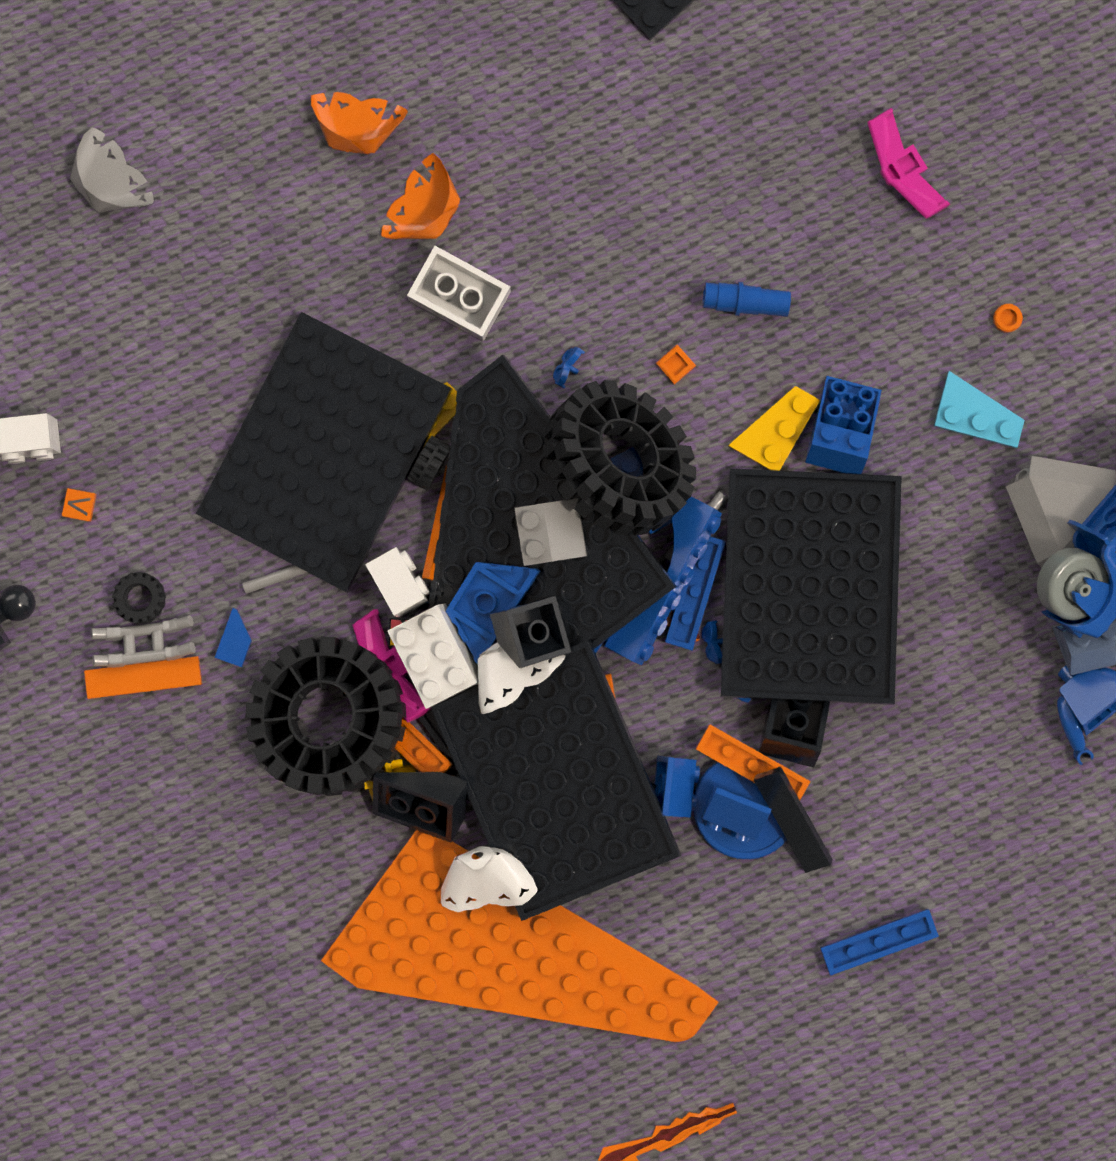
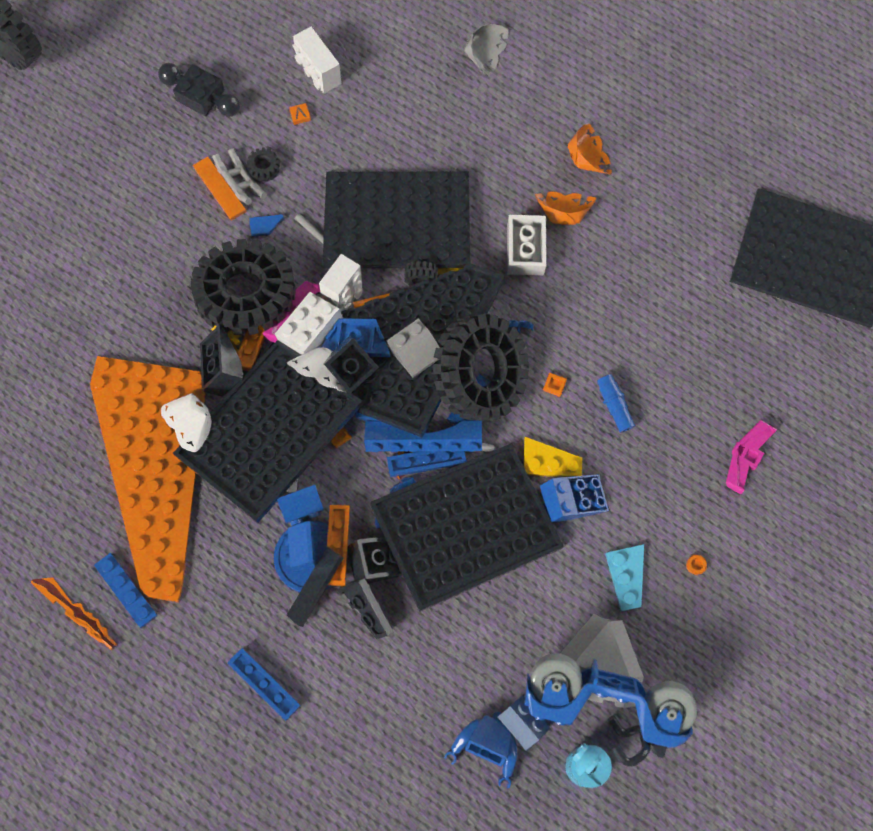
camera: 60 degrees right, 15 degrees down
(668, 1061) = (125, 590): none -> blue plate
(857, 764) = (363, 600): none -> black wing

